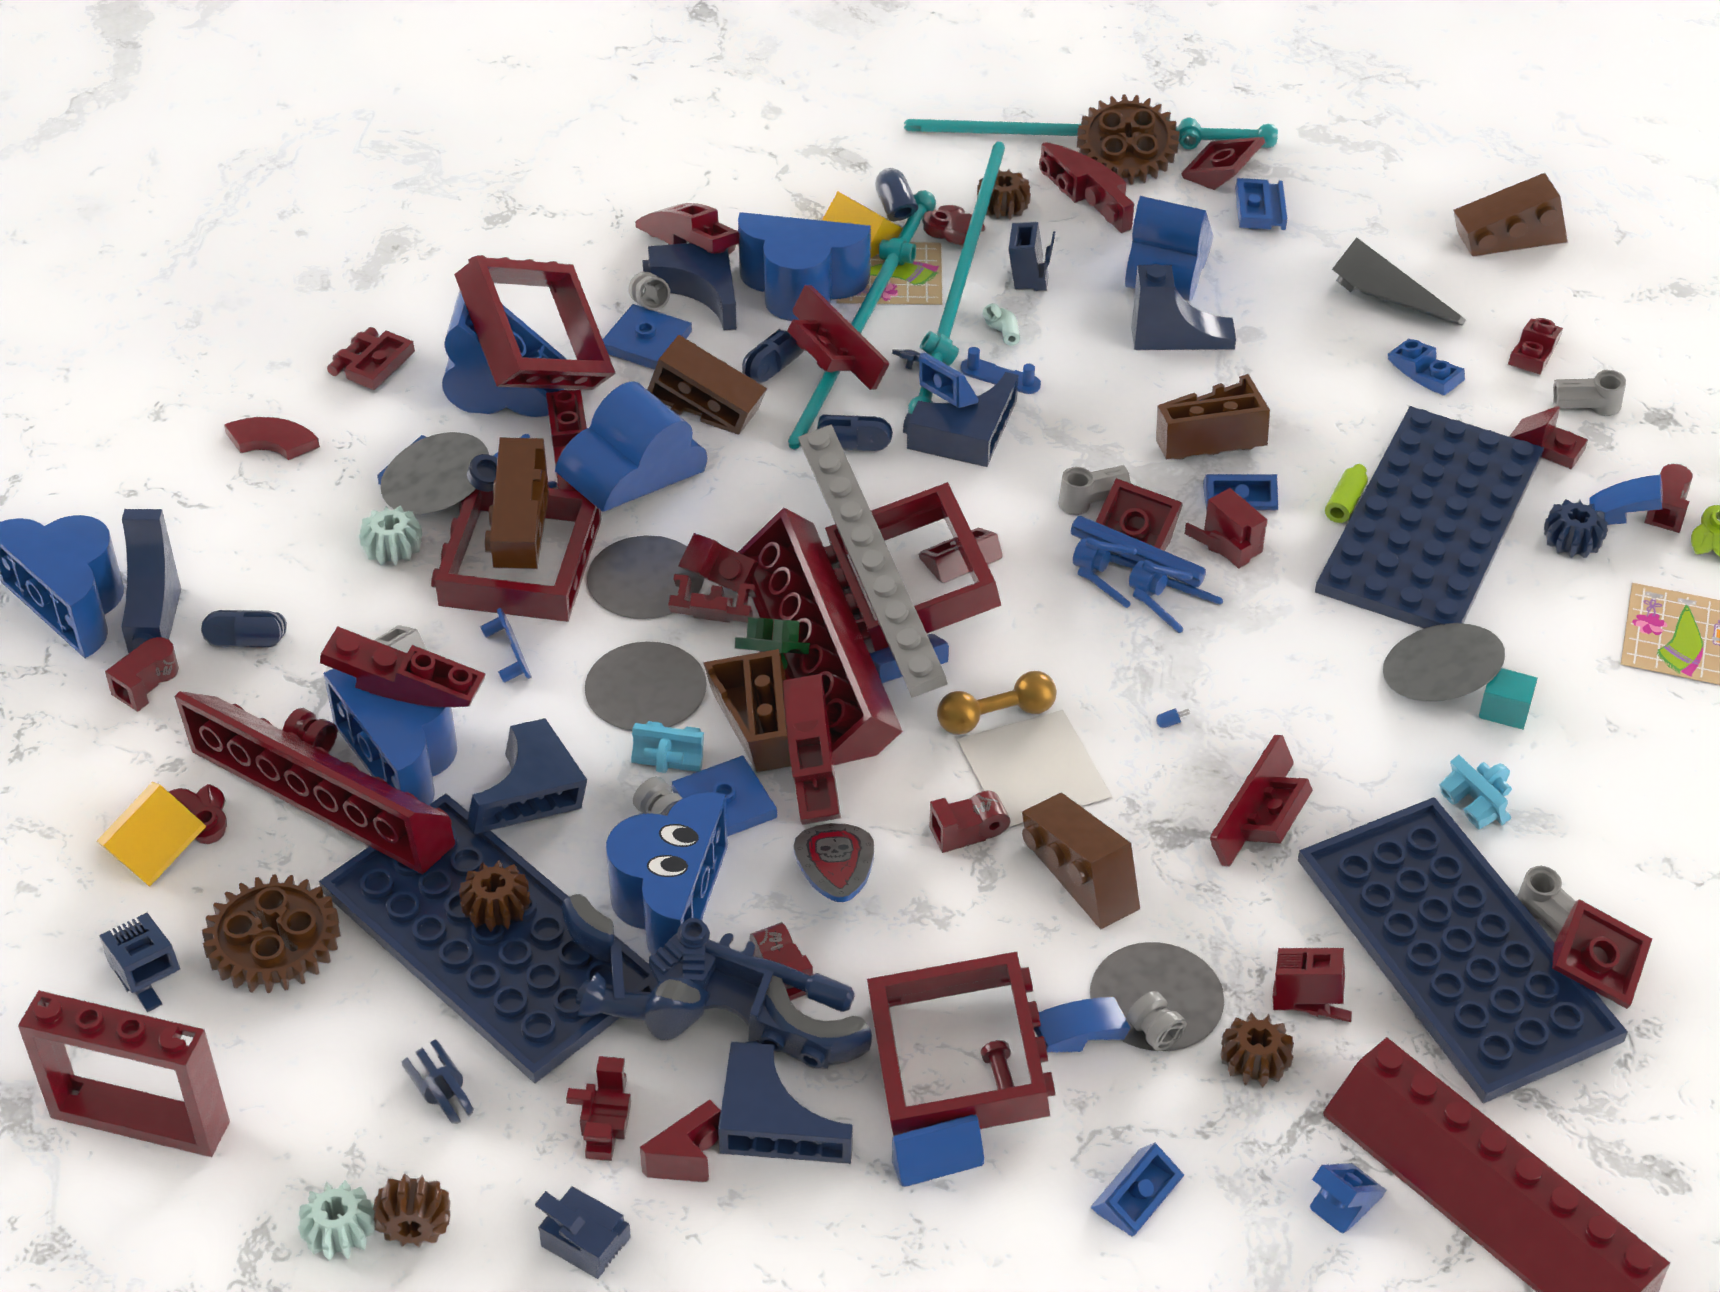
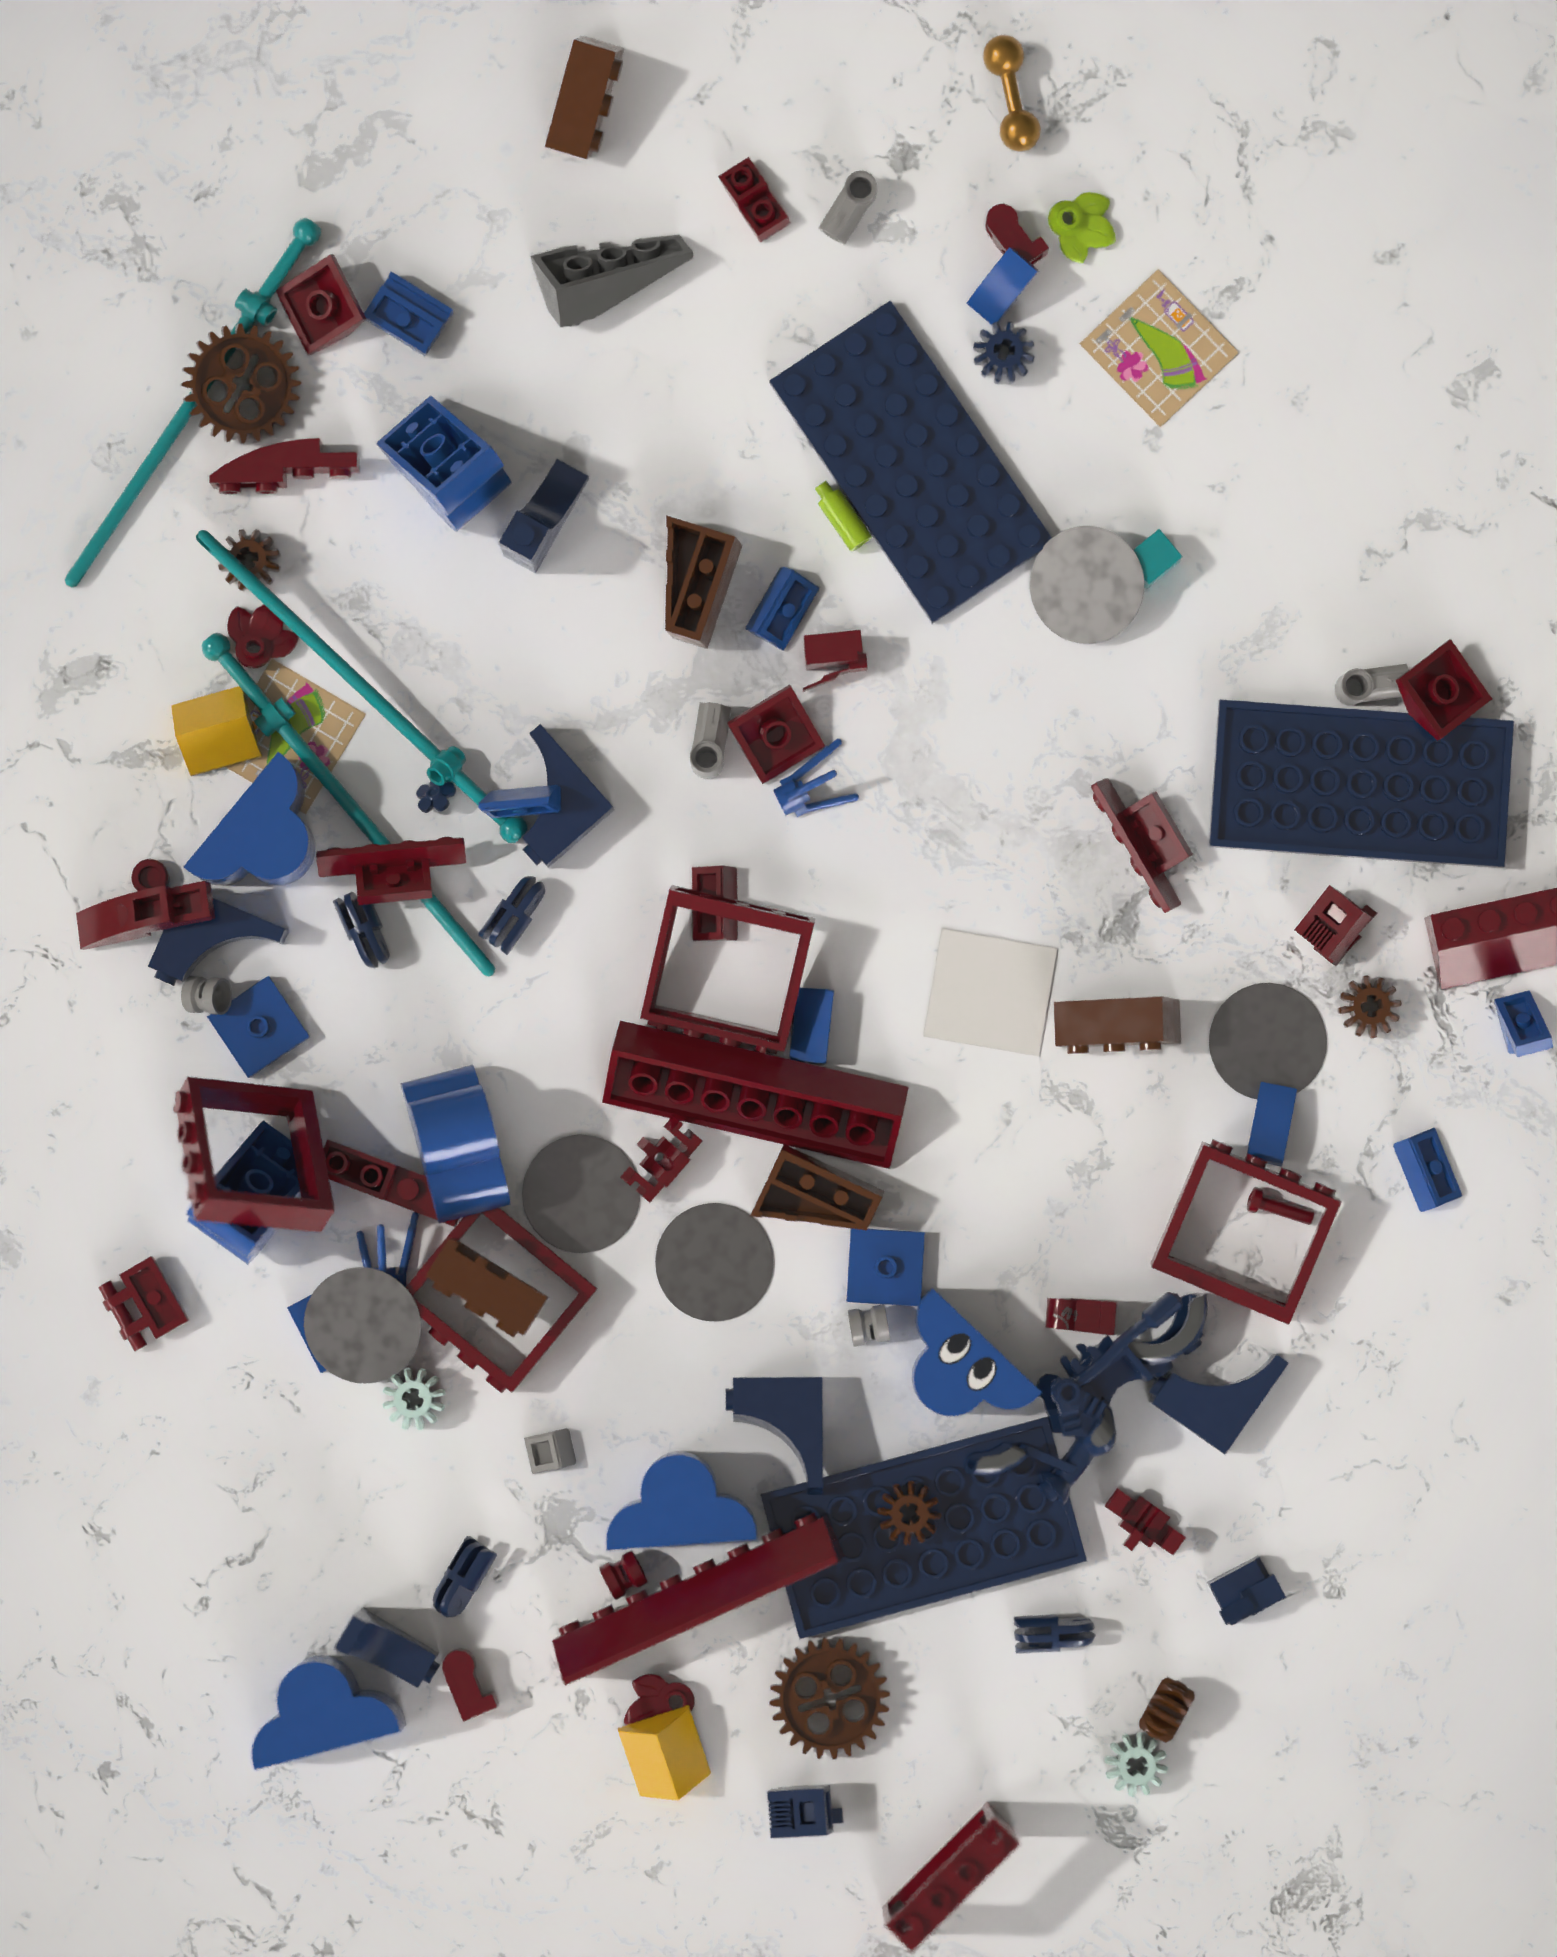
camera: 60 degrees left, 40 degrees up
(271, 434) = (201, 1443): dark red tile -> none
(406, 677) = (662, 1490): dark red slope -> none
(482, 472) = (407, 1287): dark blue tile -> none
(518, 667) = (639, 1359): blue piece -> none
(667, 747) = (812, 1290): medium azure hips -> none
(679, 1148) = (1214, 1492): dark red slope -> none
(705, 386) = (382, 1017): reddish brown wedge -> none
(717, 563) = (612, 1133): dark red slope -> none
(784, 637) = (751, 1142): dark green hips -> none
(811, 749) = (886, 1174): dark red slope -> none
(835, 859) = (1010, 1218): shield -> none
(873, 562) = (708, 1005): light grey plate -> none
(895, 194) = (198, 675): dark blue cylinder -> none
(937, 1150) = (1320, 1298): blue slope -> none
(961, 712) = (922, 950): pearl gold piece -> none
(967, 820) = (1025, 1085): dark red leg -> none
(990, 373) = (500, 722): blue piece -> none
(1003, 321) = (435, 675): light aqua arm -> none
(1028, 258) = (372, 606): dark blue piece -> none
(1085, 528) = (811, 754): blue axle -> none
(1152, 579) = (849, 763): blue plant -> none
(1156, 1020) = (1303, 1065): light grey wheel -> none
(1170, 717) = (1004, 846): blue piece -> none
(1422, 366) = (723, 323): blue slope -> none
(1485, 788) = (1215, 659): medium azure hips -> none
(1559, 445) = (878, 285): dark red slope -> none

